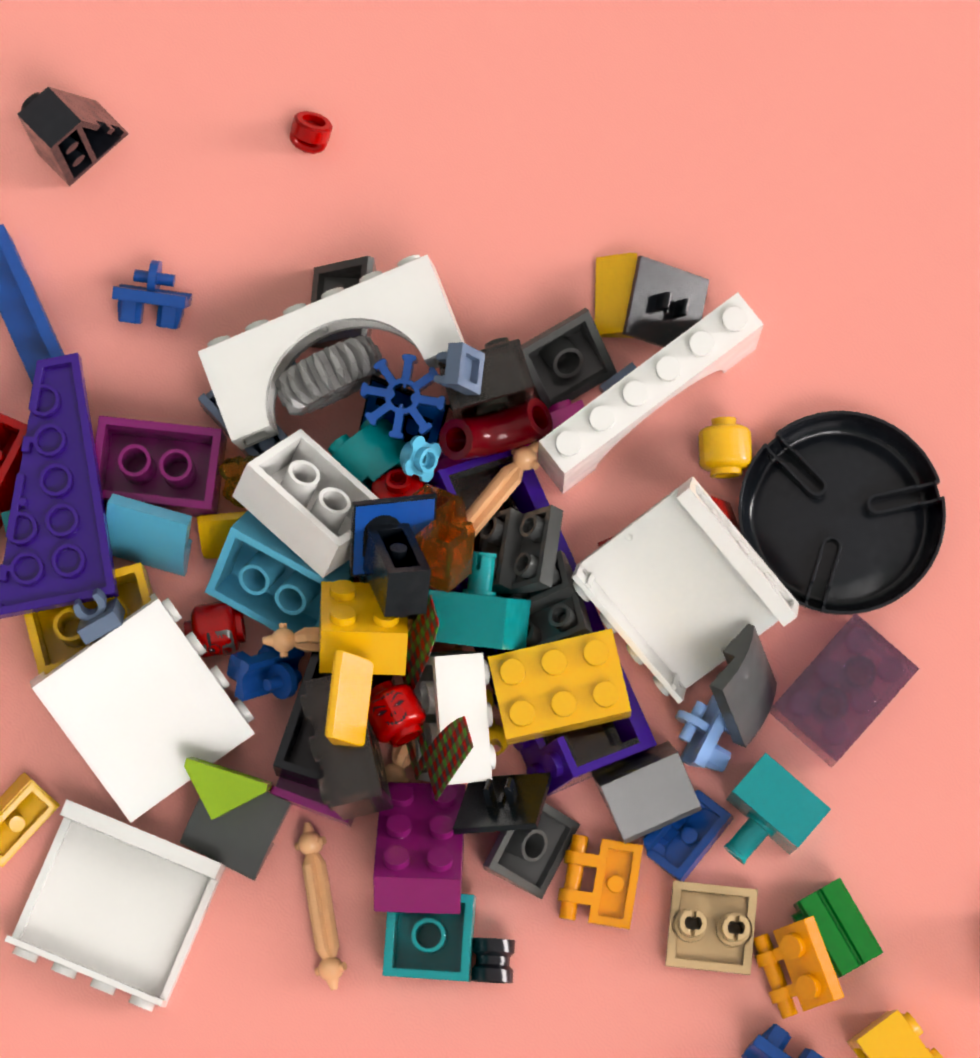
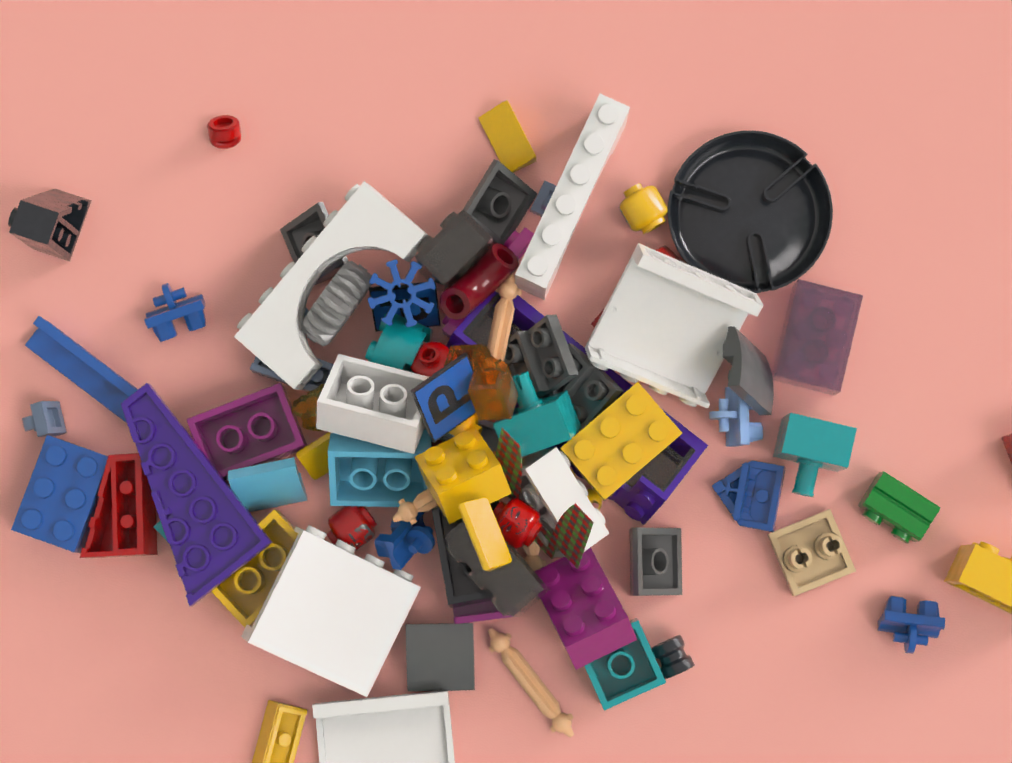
camera: 30 degrees left, 5 degrees up
(100, 620) = (269, 567): sand blue tile -> none
(222, 787) = (421, 638): lime slope -> none
(396, 570) = (467, 422): black brick -> none
(420, 458) = (436, 330): medium azure plate -> none
(462, 368) = (436, 251): sand blue tile -> none
(503, 803) = (626, 546): black piece -> none
(614, 882) = (728, 559): light orange plate -> none
(648, 792) = (718, 481): slope -> none
(663, 302) = (546, 126): piece -> none
(806, 963) = (891, 543): light orange plate -> none

